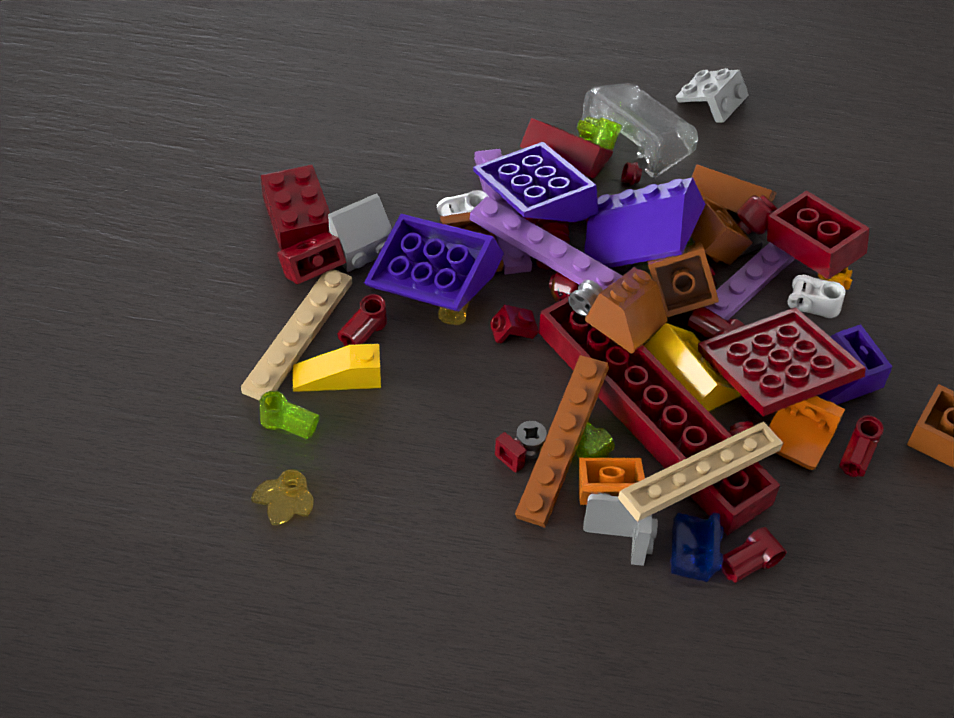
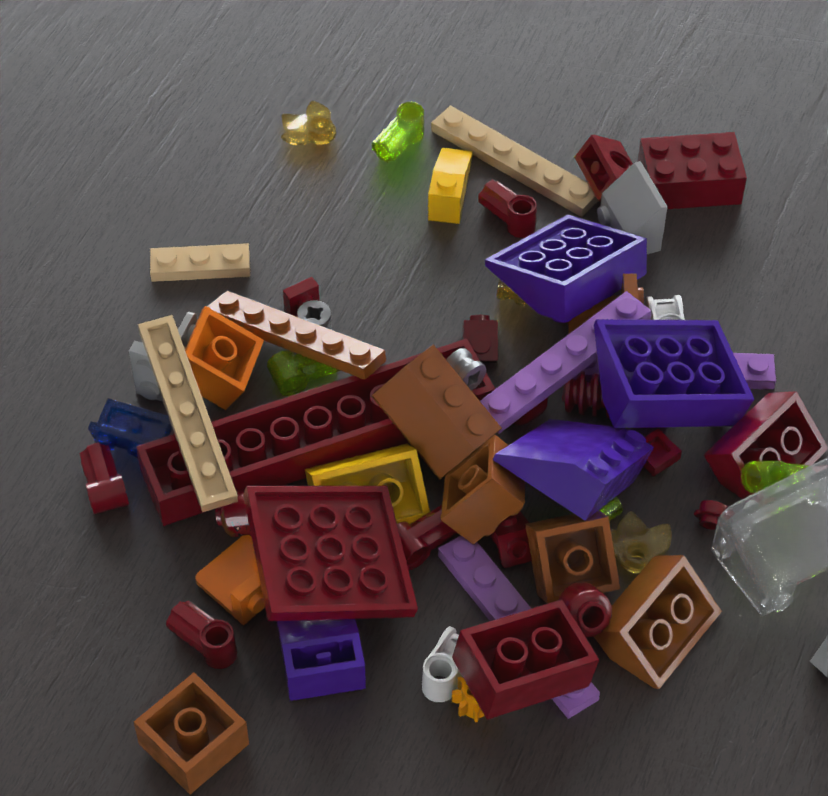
camera: 105 degrees right, 0 degrees up
(482, 549) = (199, 262): none -> tan plate

